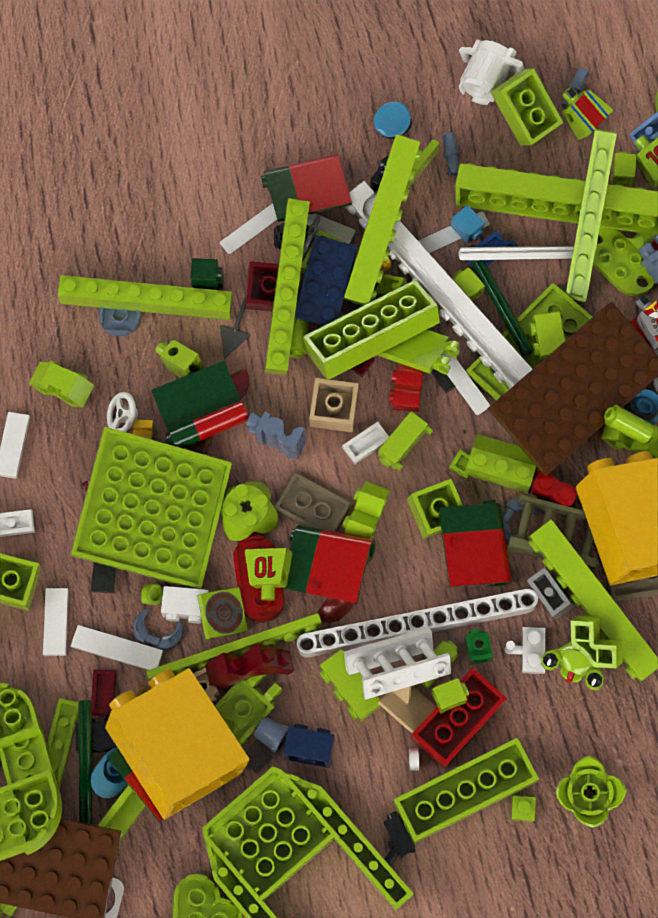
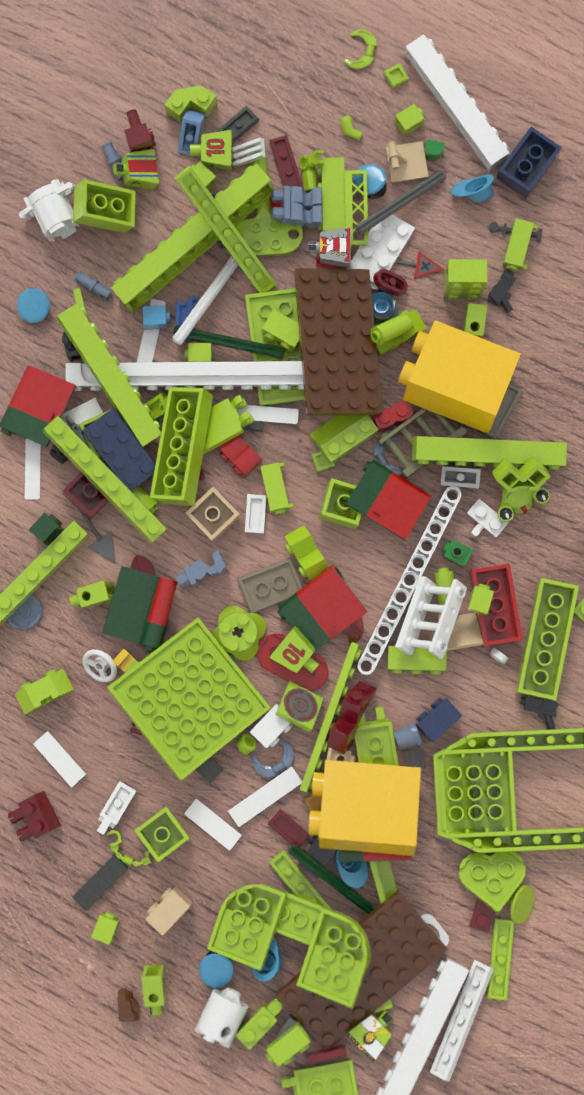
camera: 50 degrees left, 10 degrees up
(612, 87) = (138, 136): none -> dark red brick

